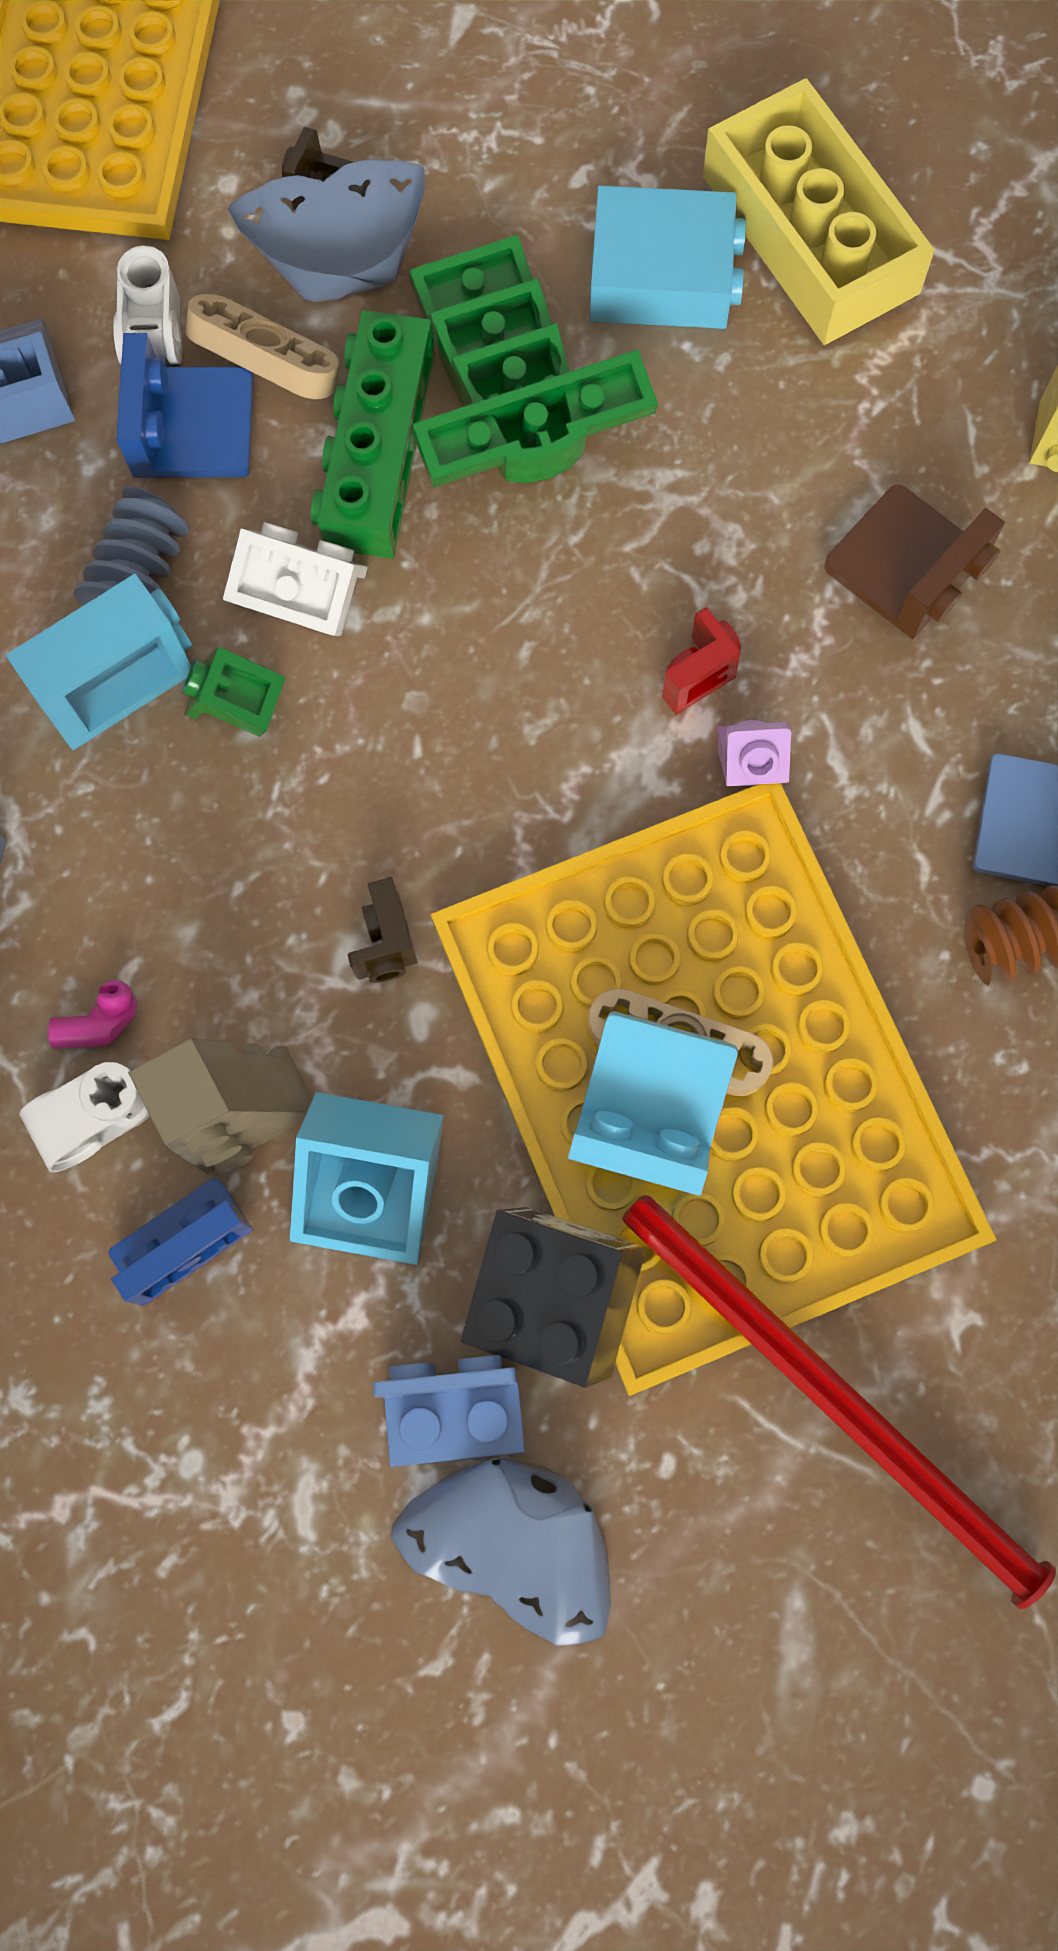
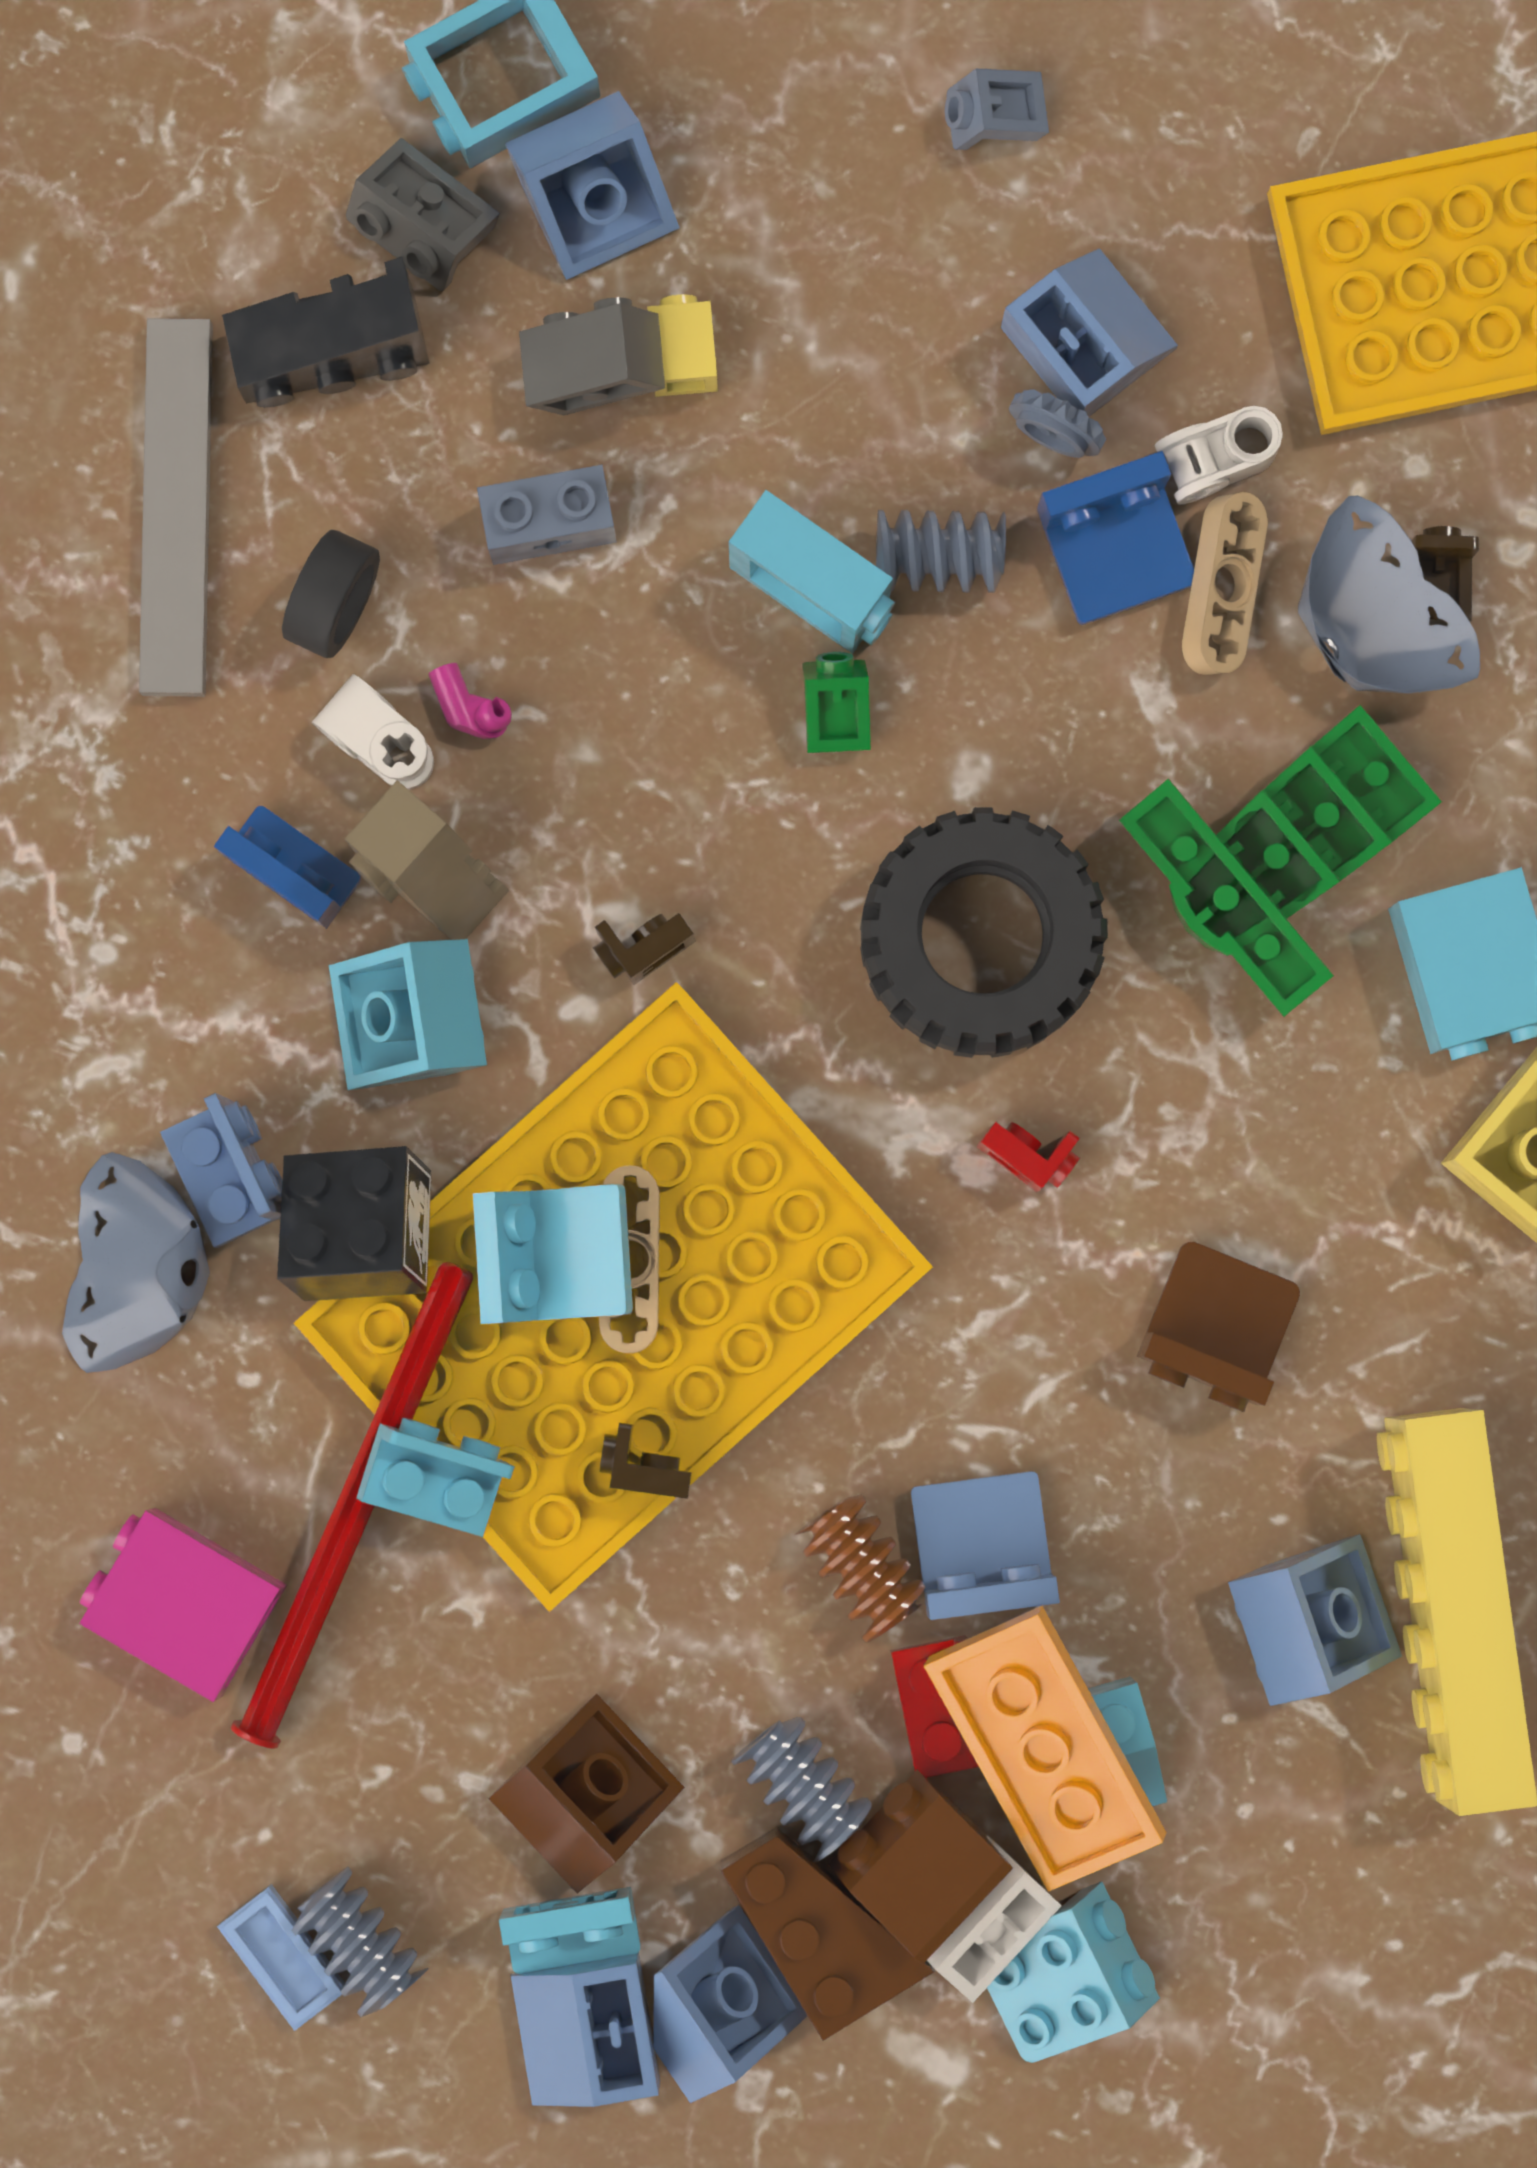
camera: 65 degrees right, 10 degrees up
(82, 413) = (1057, 424): none -> sand blue gear
(293, 580) = (979, 717): white bracket -> none
(374, 439) = (1166, 738): green brick -> none
(482, 556) = (1001, 848): none -> black tyre
(754, 752) = (949, 1235): lavender bracket -> none
(835, 1304) = (432, 1478): none -> medium azure bracket
(877, 1617) = (180, 1602): none -> dark pink brick
(899, 1087) = (654, 1475): none -> dark brown bracket

